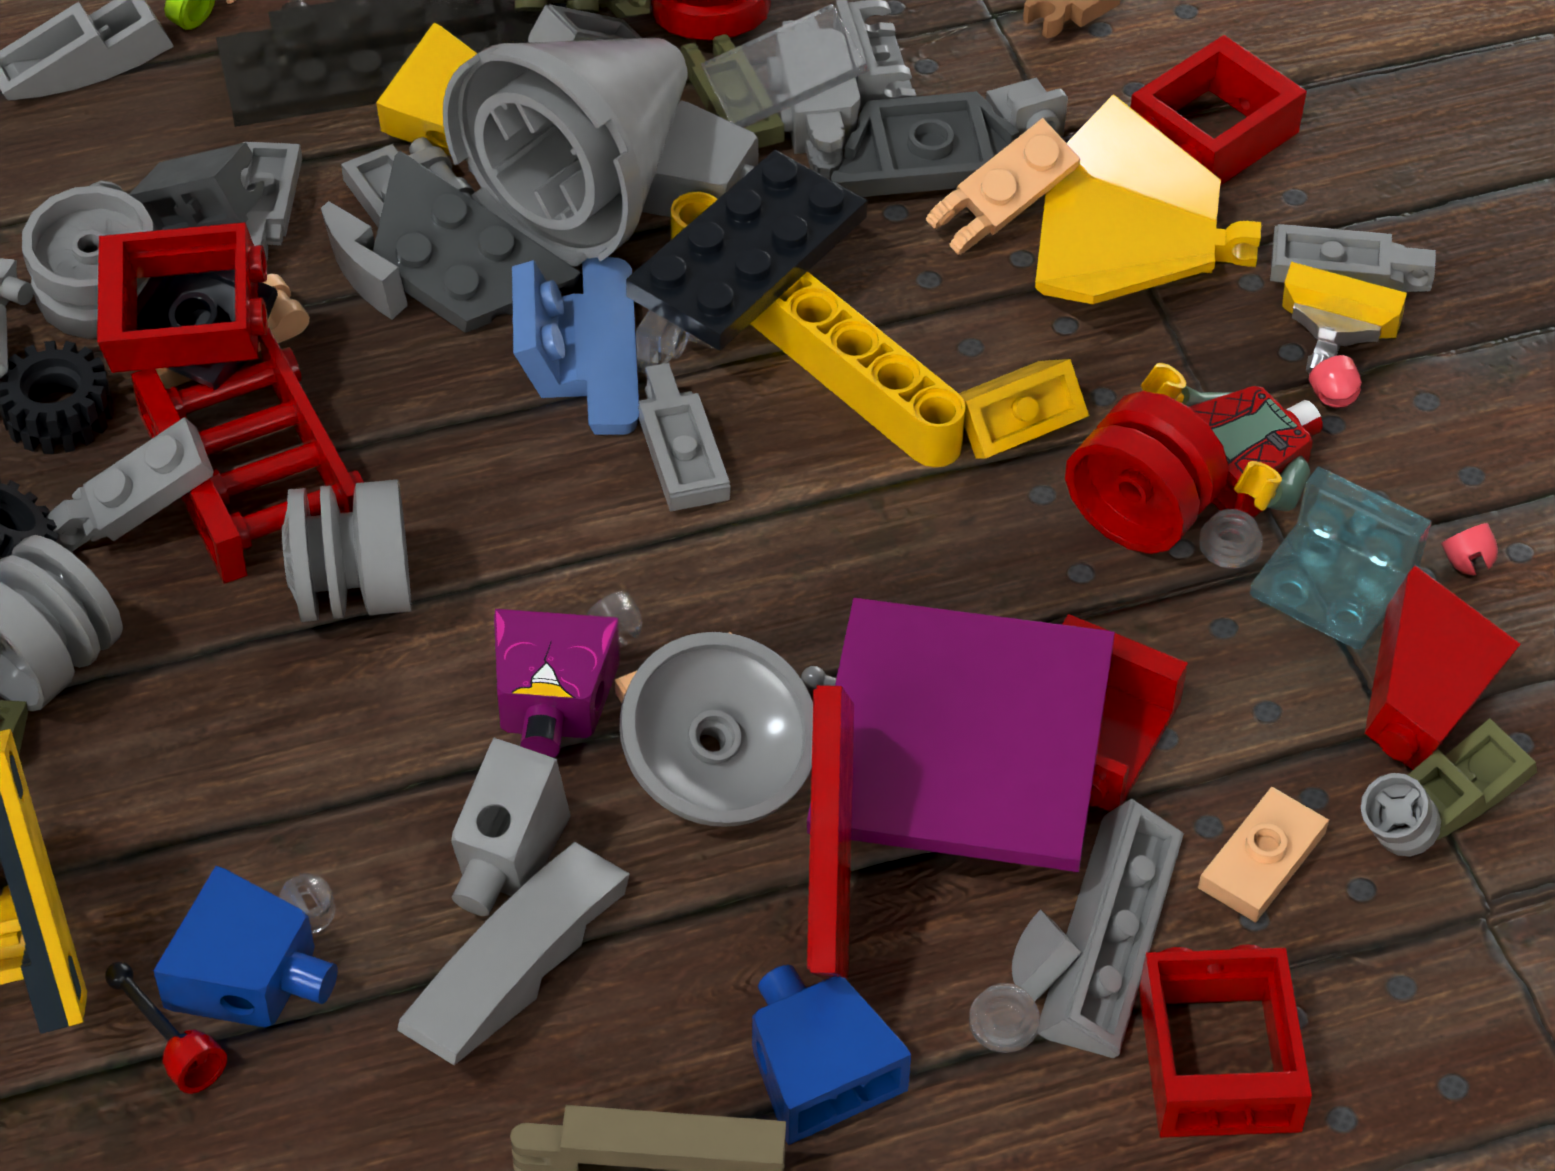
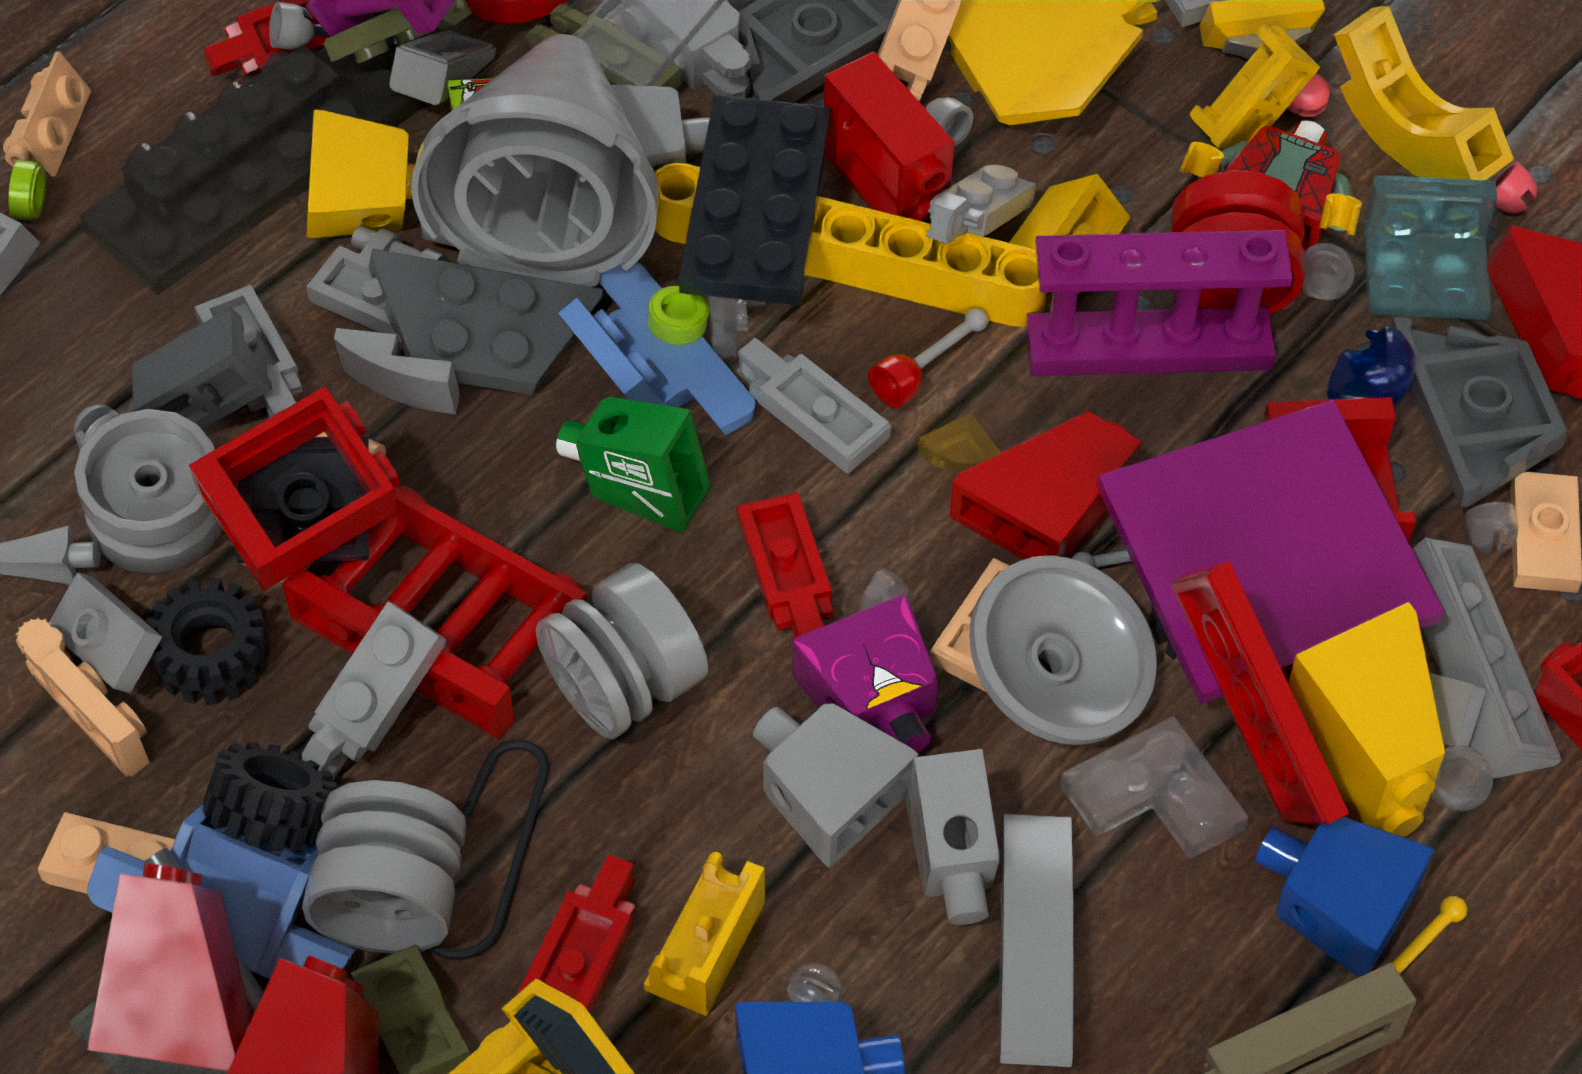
camera: 30 degrees left, 5 degrees up
(143, 771) = (587, 935): none -> red hinge
(166, 677) = (492, 936): none -> black piece
(256, 814) = (708, 935): none -> yellow hinge
(445, 734) = (832, 776): none -> light grey torso
(491, 398) = (640, 459): none -> green torso
(555, 552) = (786, 563): none -> red hinge
(618, 319) = (677, 316): none -> lime tile
(738, 878) = (1162, 773): none -> clear plate
(774, 451) = (899, 376): none -> red hinge
(783, 534) = (958, 444): none -> clear yellow tile
(806, 594) = (1045, 490): none -> red slope
(900, 254) = (890, 143): none -> red window
(910, 1125) = (1452, 910): none -> yellow hinge
(945, 339) = (979, 203): none -> light grey hinge
(945, 917) = (1374, 718): none -> yellow slope
(994, 268) = (952, 117): none -> light grey hinge
(1016, 521) = (1156, 339): none -> magenta fence
(1205, 642) = (1376, 372): none -> clear blue hair
(1212, 822) = (1492, 525): none -> clear hinge
(1280, 355) = (1258, 90): none -> yellow hinge
(1282, 716) = (1482, 407): none -> dark grey wing
(1413, 431) = (1406, 115): none -> yellow arch

